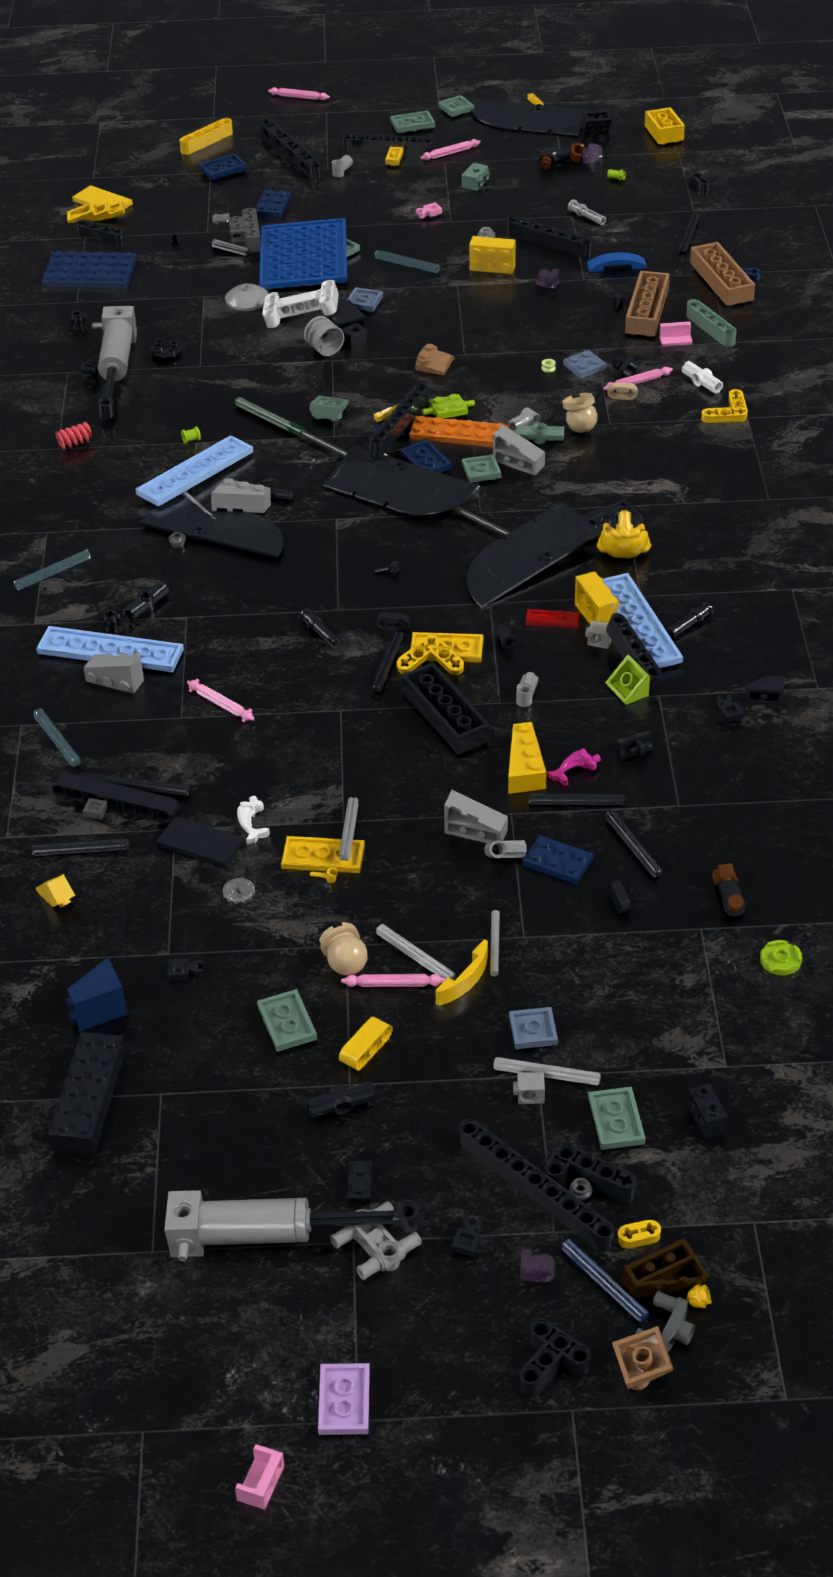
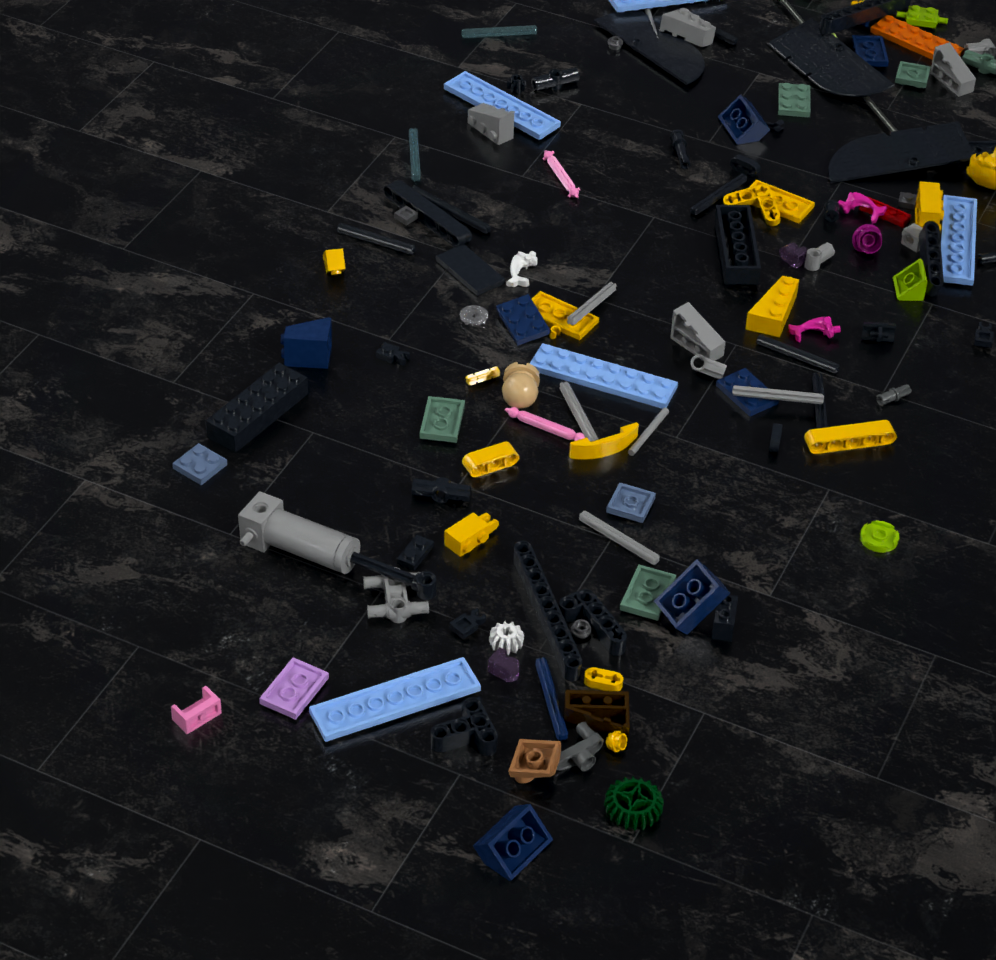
camera: 25 degrees right, 0 degrees up
(66, 1185) = (199, 464): none -> sand blue plate
(292, 875) = (523, 319): none -> dark blue plate
(293, 953) = (482, 376): none -> yellow axle
(359, 576) = (743, 121): none -> dark blue slope
(389, 535) = (794, 100): none -> sand green plate
(401, 1135) = (469, 533): none -> yellow hinge
(410, 902) = (604, 376): none -> light blue plate
(453, 1360) = (394, 699): none -> light blue plate
(502, 697) = (792, 254): none -> clear purple leg
(517, 1234) = (507, 637): none -> white gear
(523, 616) = (857, 199): none -> dark pink animal
(530, 1088) = (595, 542): light grey brick -> none
(560, 653) = (867, 239): none -> magenta piece
(564, 599) = (907, 200): none -> flat silver plate
(593, 851) = (776, 394): none -> light grey axle
(670, 1105) = (691, 597): none -> dark blue slope
(680, 1460) = (513, 841): none -> dark blue slope
(685, 866) = (850, 436): none -> yellow beam
(692, 804) = (893, 394): none -> dark grey axle
(731, 895) = (871, 475): piece -> none
(768, 1345) = (633, 803): none -> dark green gear

